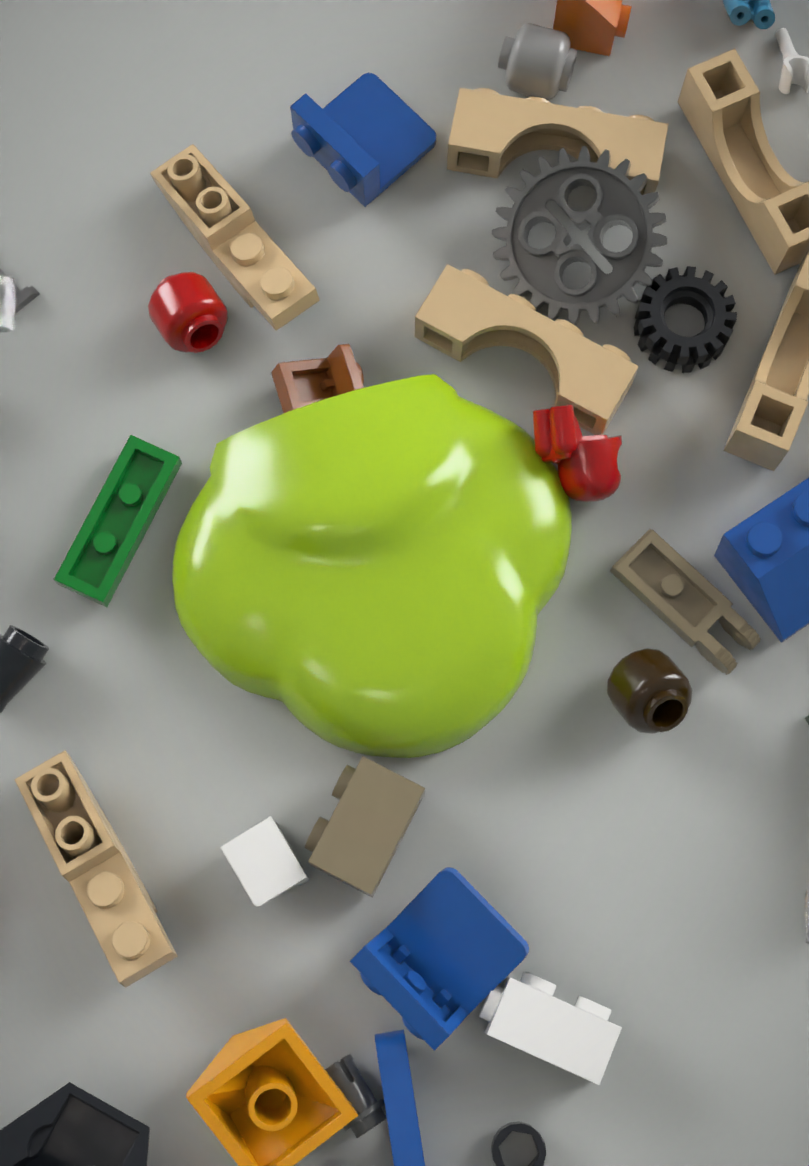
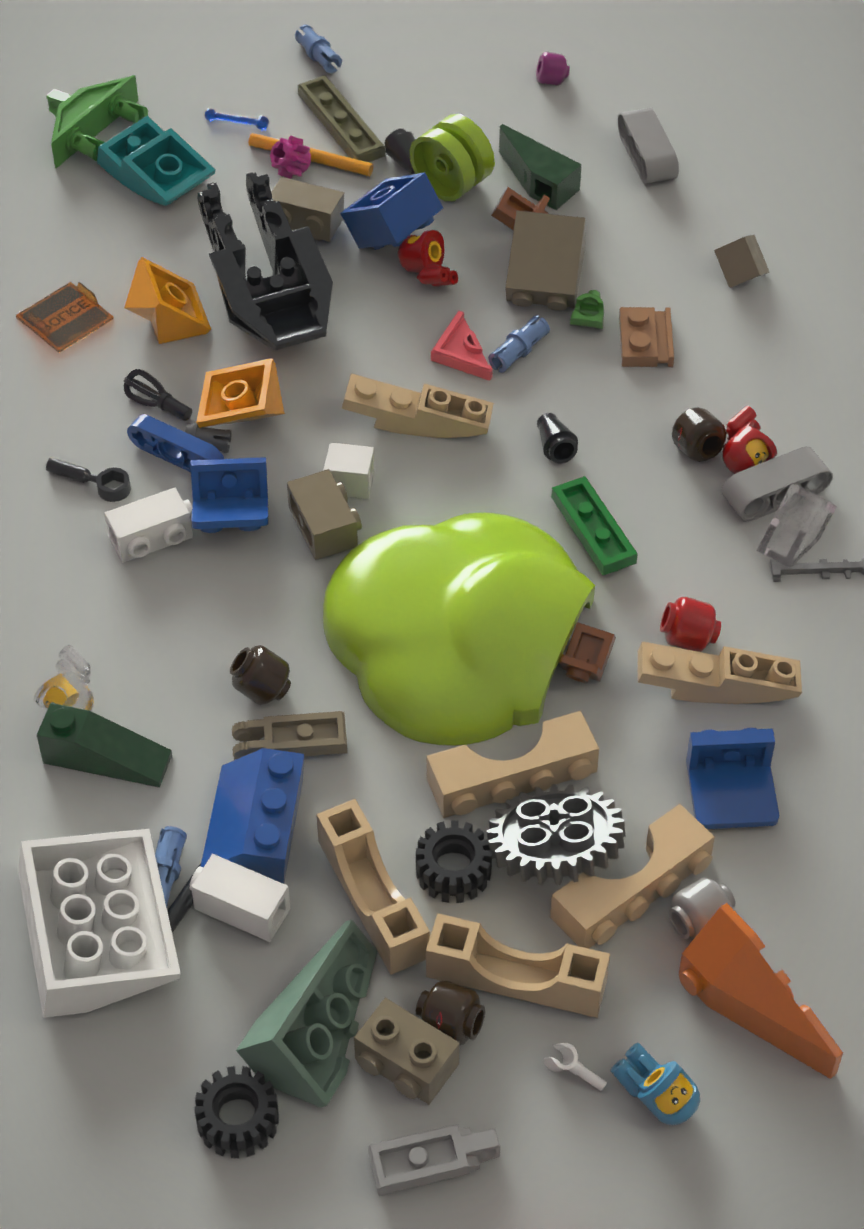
camera: 130 degrees right, 25 degrees down
(584, 463) = (412, 741): red piece -> none

